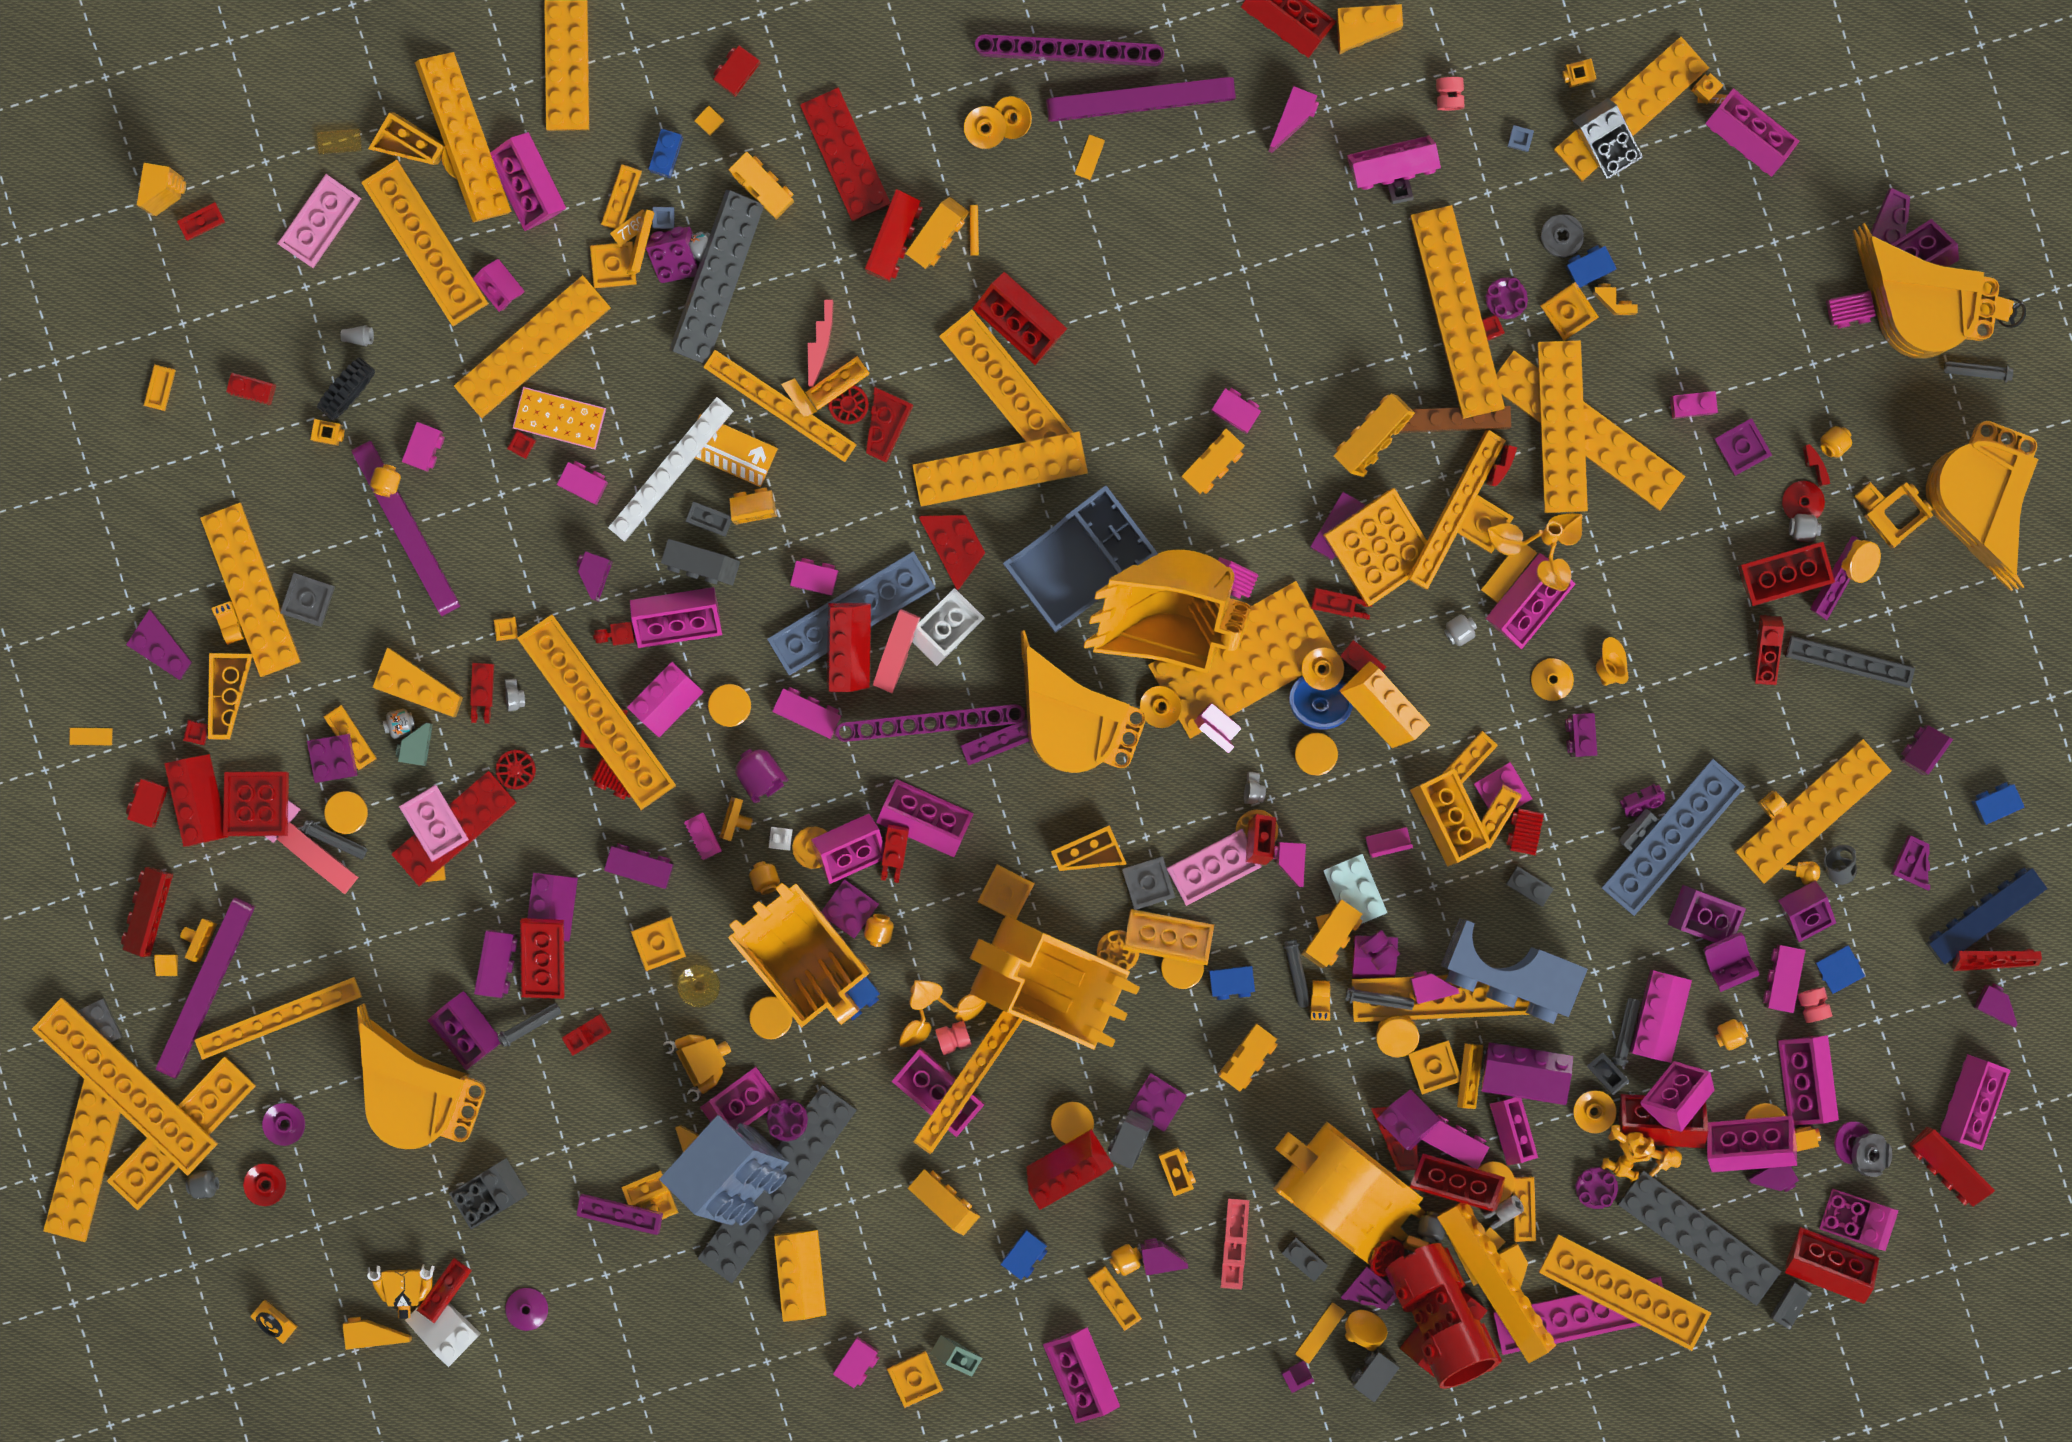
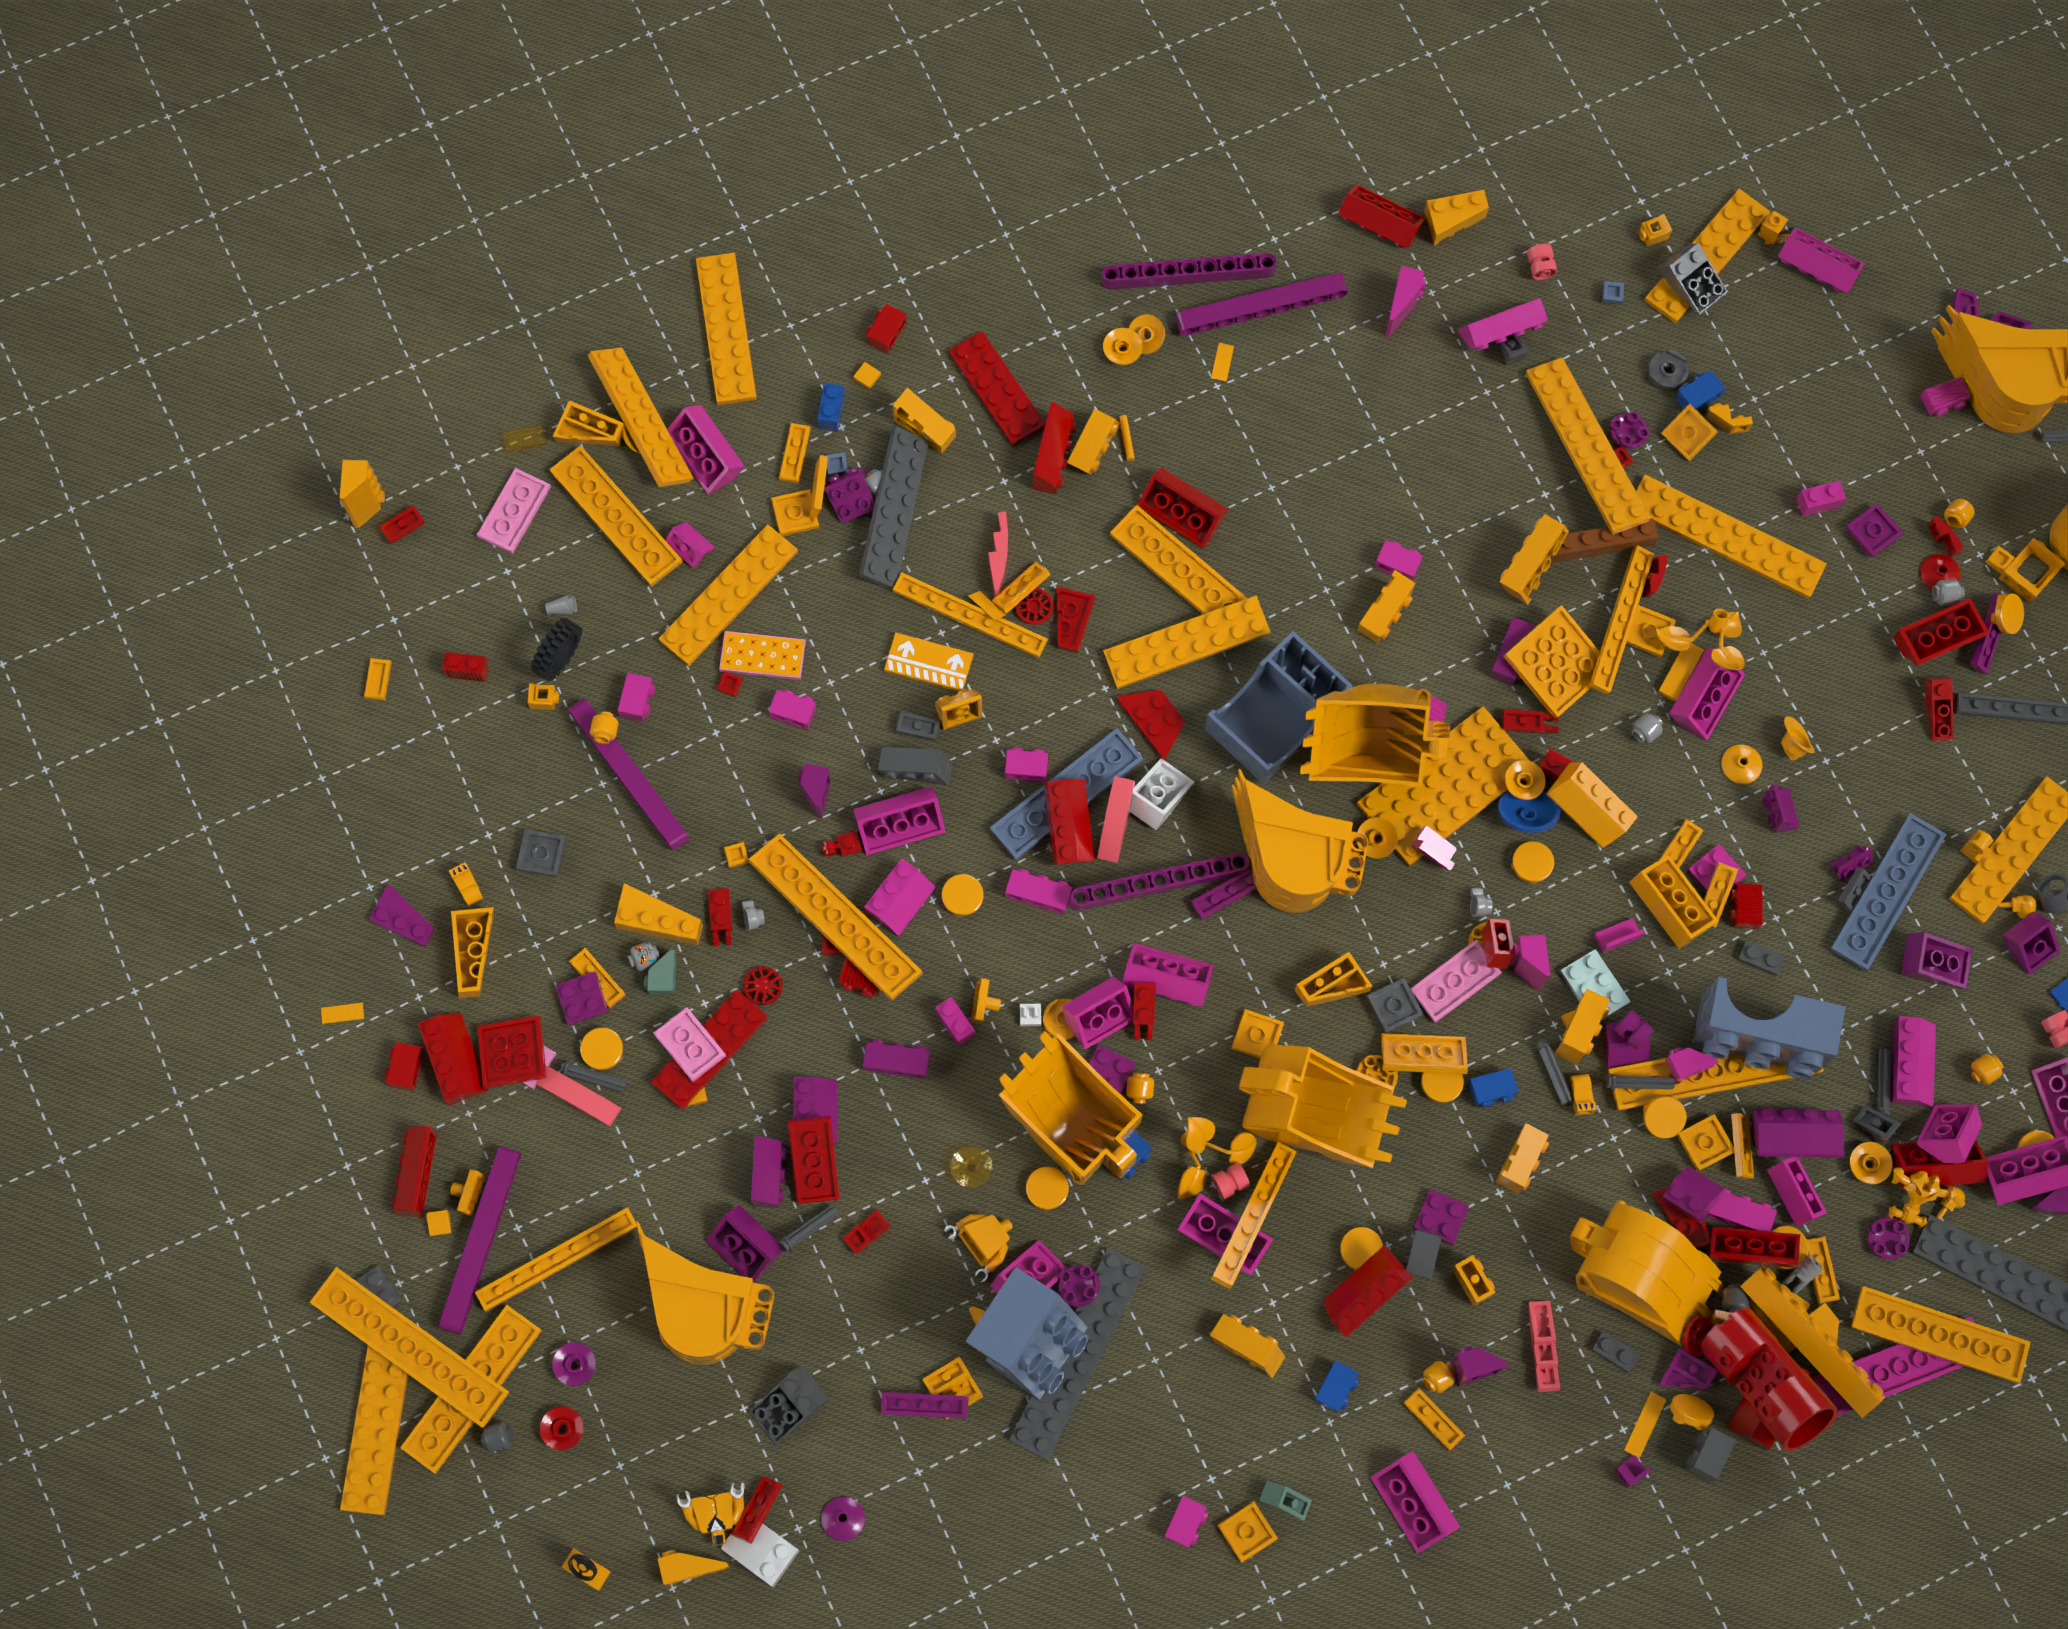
camera: 10 degrees left, 15 degrees down
(196, 732) = (446, 994): red tile -> none
(250, 589) = (485, 853): light orange plate -> none
(627, 229) = (804, 479): light orange sticker -> none
(658, 943) = (925, 1132): light orange plate -> none
(670, 469) = (874, 685): white plate -> none
(759, 774) = (1002, 953): magenta cylinder -> none
(764, 878) = (1016, 1048): light orange head -> none
(800, 1275) = (1115, 1441): light orange slope -> none
(1562, 426) = (1705, 533): light orange plate -> none
(1730, 962) = (1969, 999): magenta bracket -> none
(1784, 978) = (2024, 1009): dark pink brick -> none

